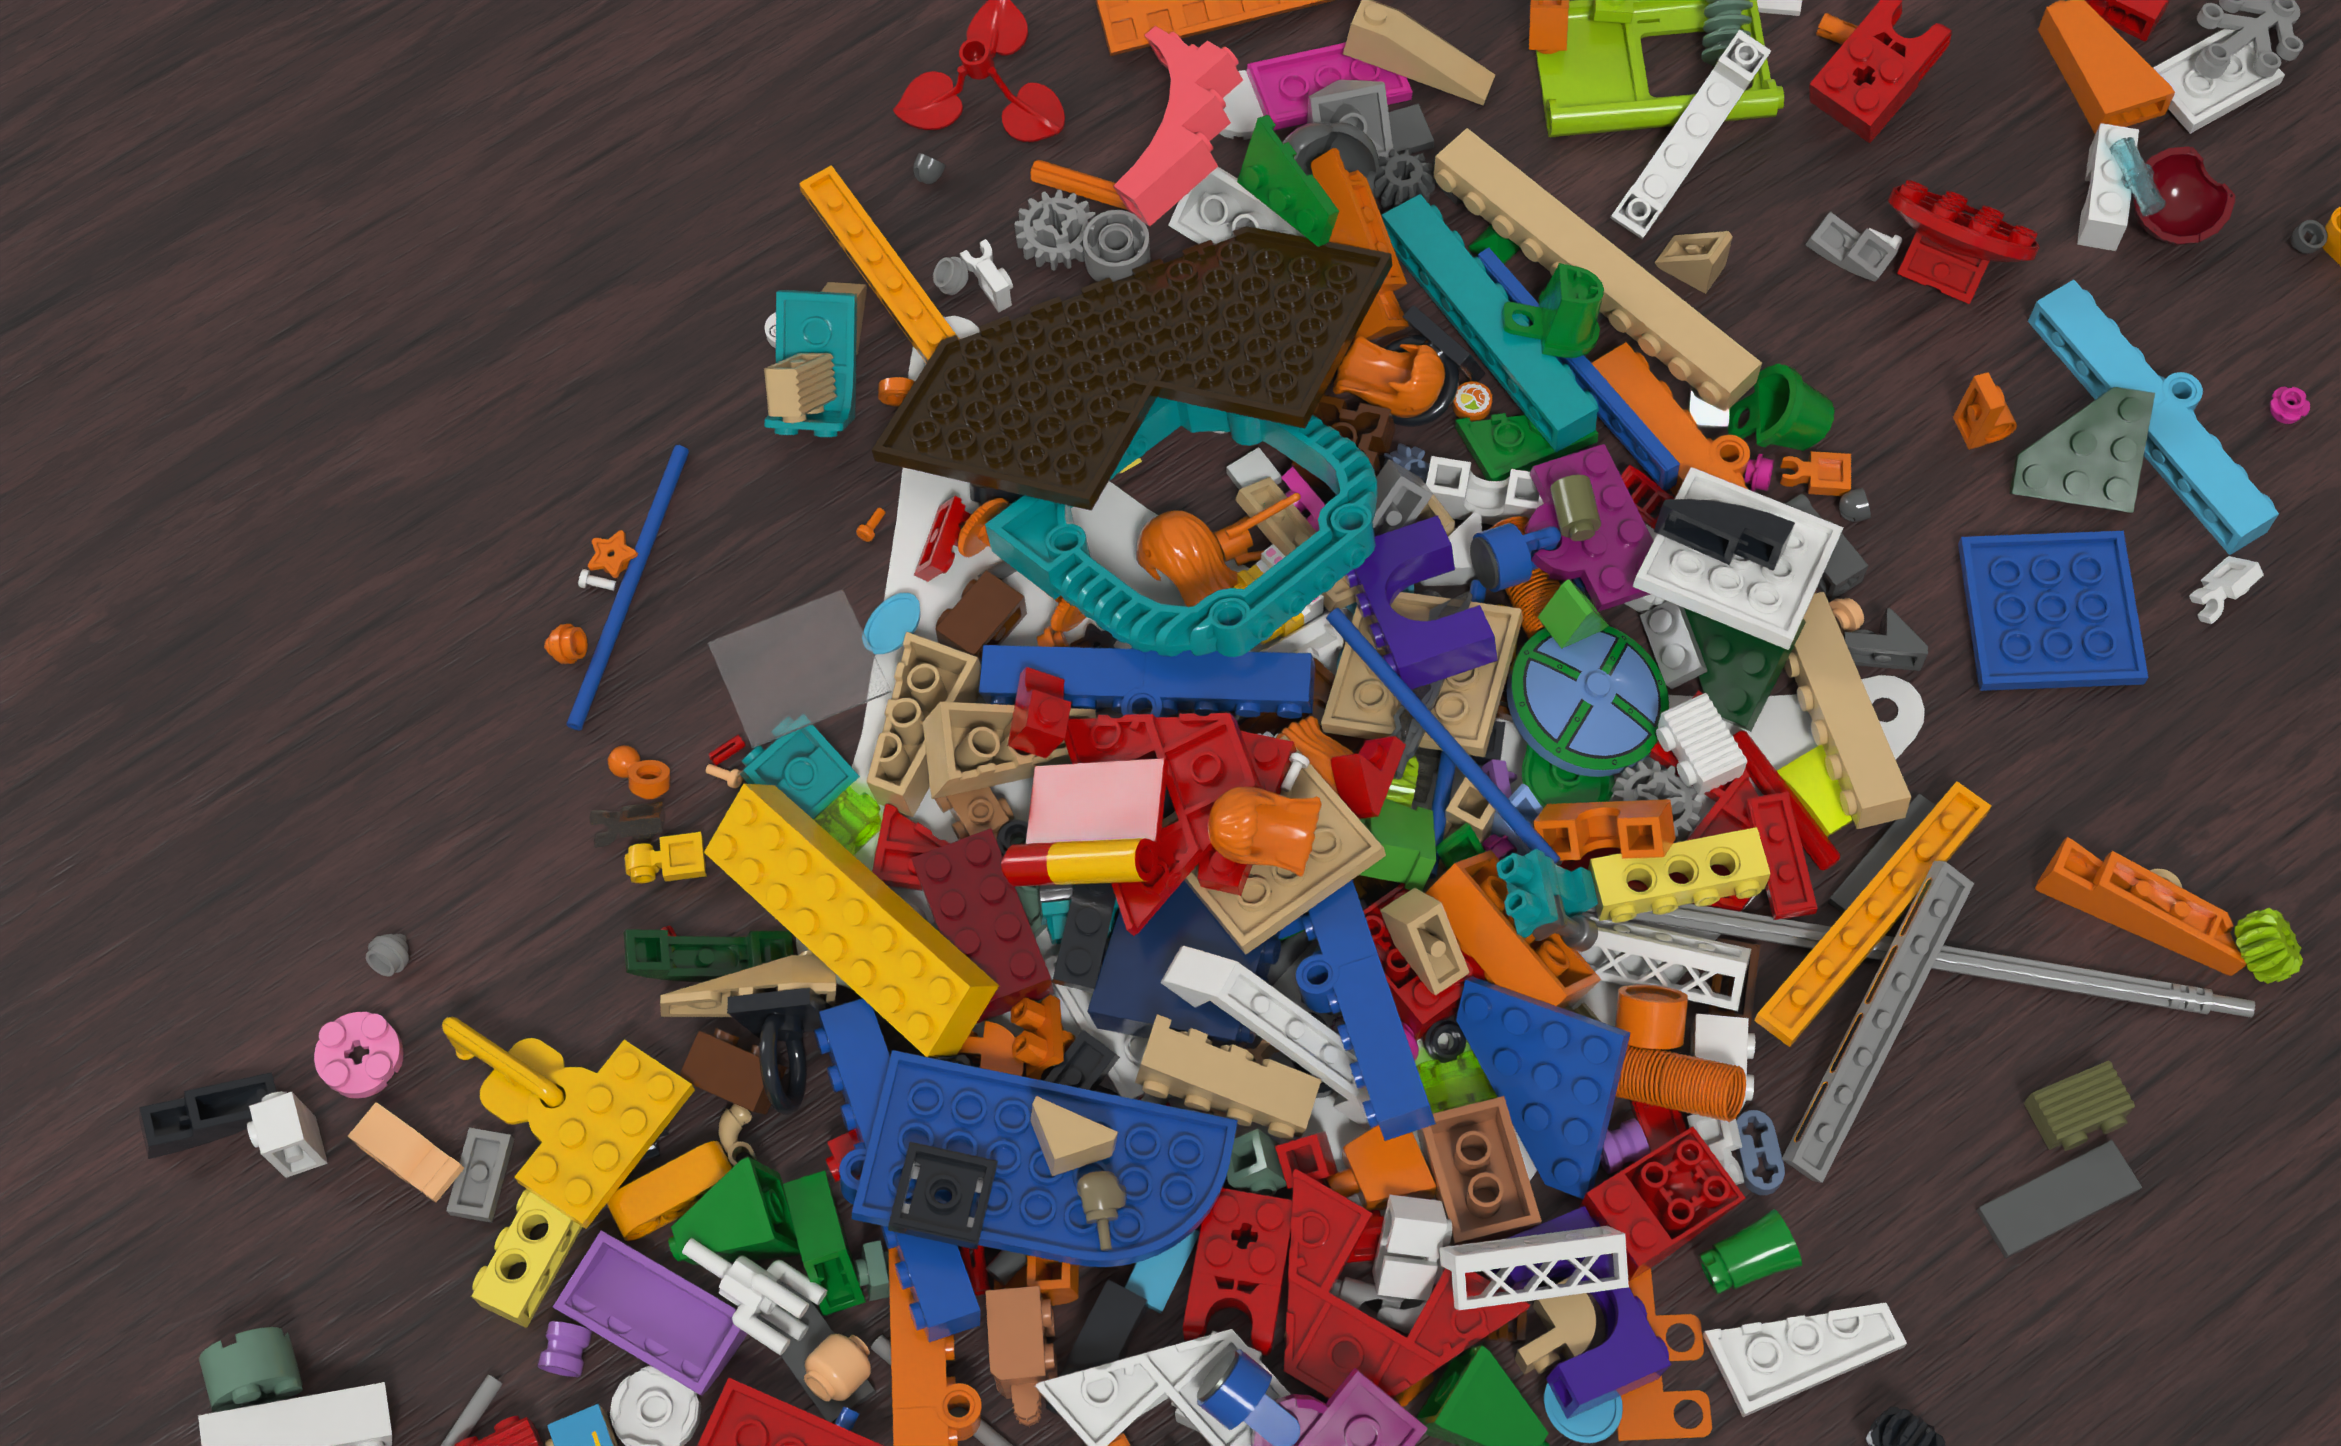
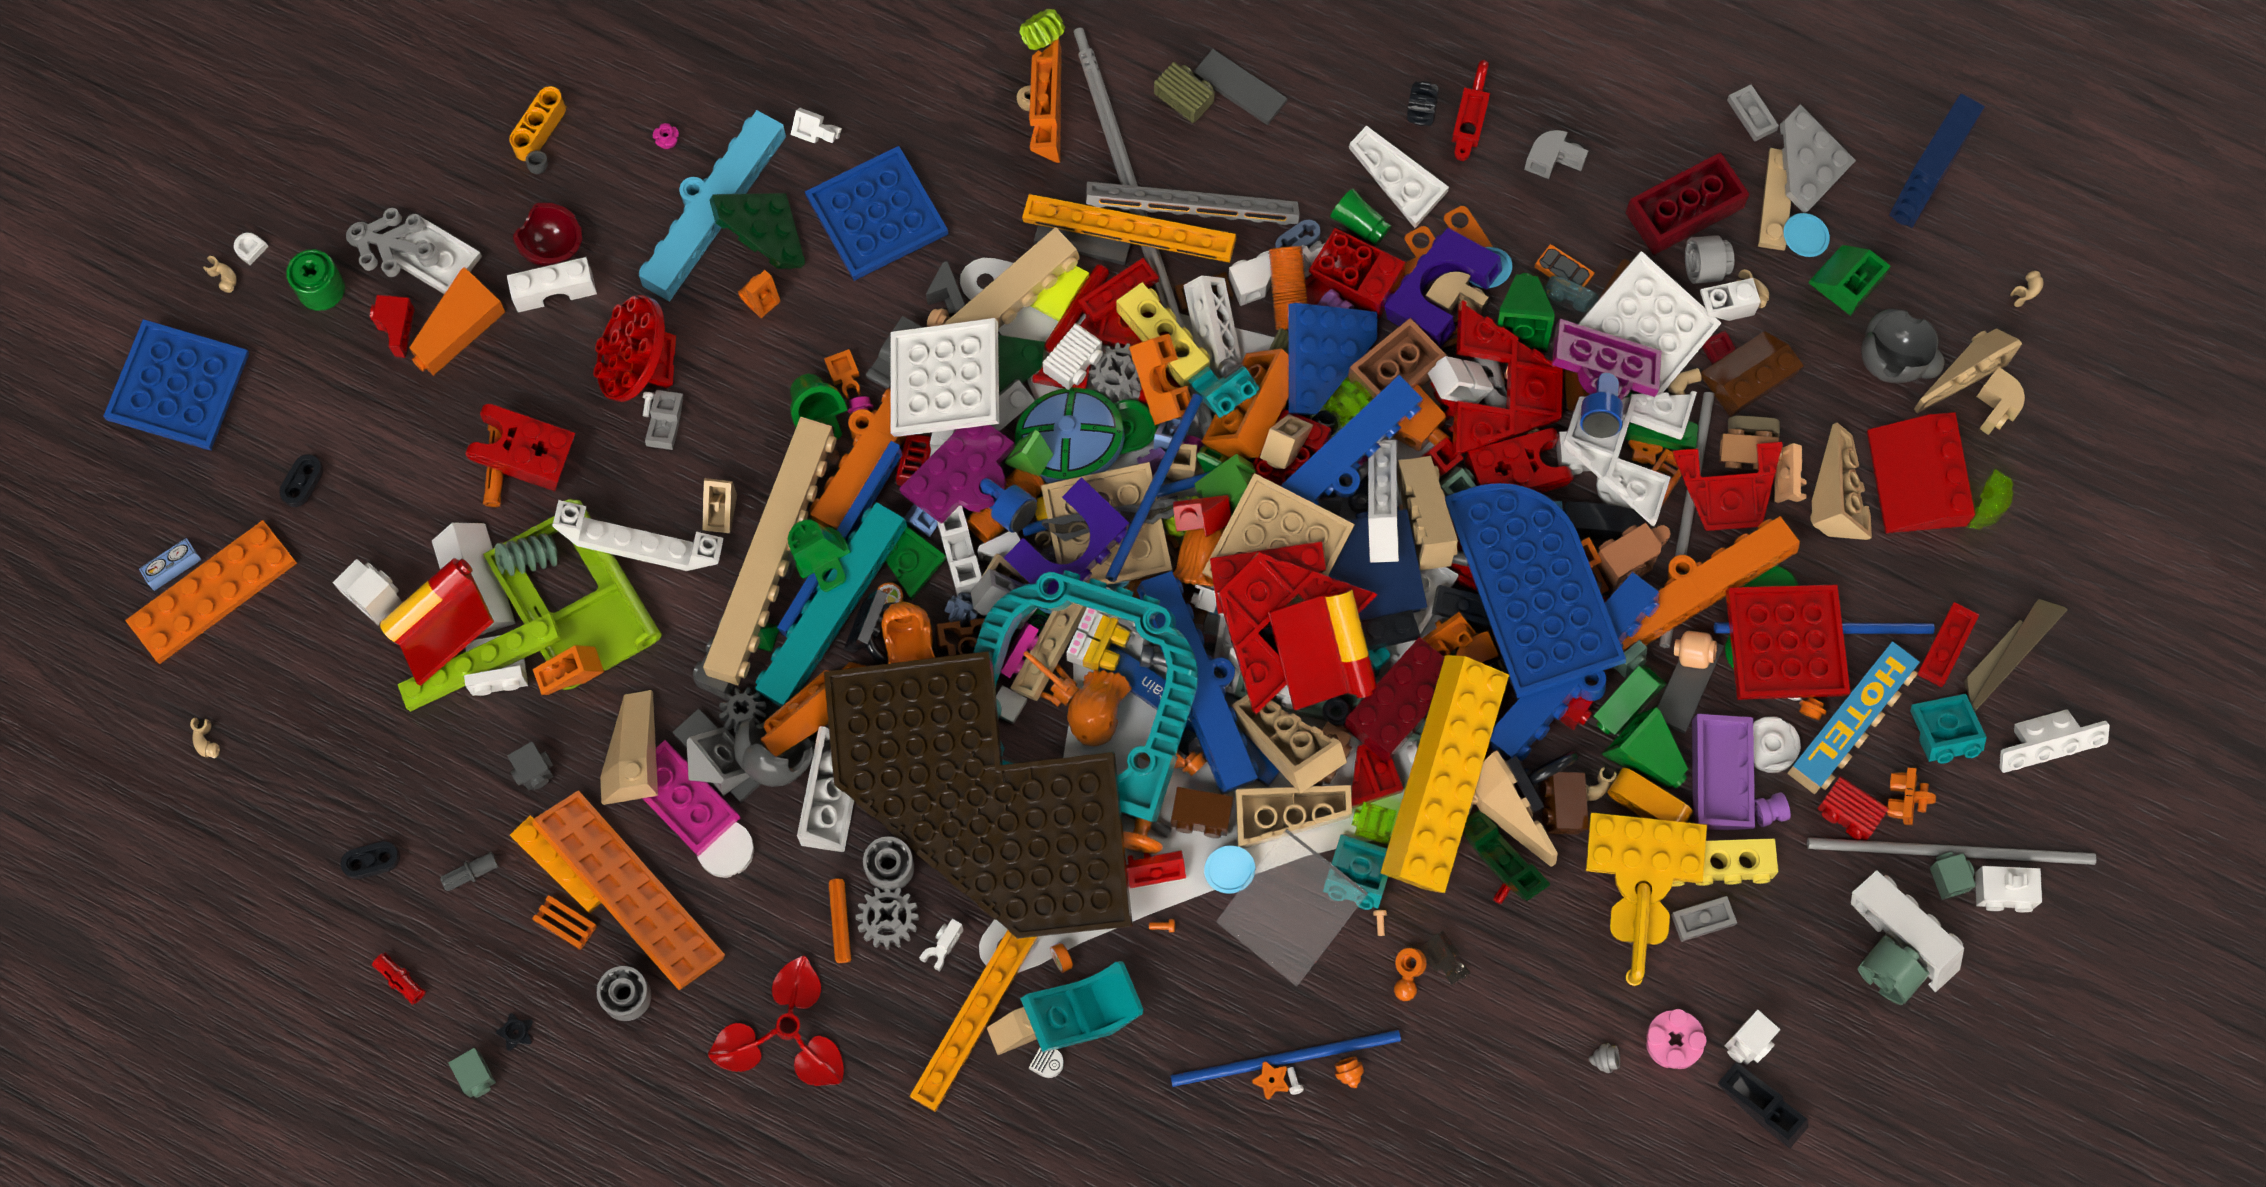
camera: 120 degrees left, 5 degrees up
(405, 1152) = (1719, 965): light nougat piece -> none
(679, 858) = (1451, 915): yellow plate -> none
(727, 750) = (1363, 930): red piece -> none
(760, 1293) = (1685, 709): white plant -> none
(800, 386) = (1105, 1000): tan brick -> none
(927, 169) = (875, 1032): dark grey hinge -> none
(936, 1171) = (1600, 602): black piece -> none
(950, 275) = (955, 969): light grey plate -> none
(1039, 713) = (1263, 719): red arch -> none
(1069, 1138) = (1518, 567): tan slope -> none
(1100, 1199) = (1538, 533): dark tan piece -> none
(1194, 116) = (813, 844): coral arch -> none
(1264, 828) = (1287, 536): orange piece -> none
(1282, 185) = (805, 762): green wing -> none
(1298, 761) = (1227, 550): white piece -> none
(1531, 1250) = (1434, 306): white fence -> none
(1575, 507) = (964, 474): olive brick -> none
(1652, 1015) = (1255, 317): orange piece -> none
(1725, 530) = (938, 380): black slope -> none
(1855, 506) = (857, 345): dark grey hinge -> none
(2137, 176) = (551, 258): clear light blue pin -> none

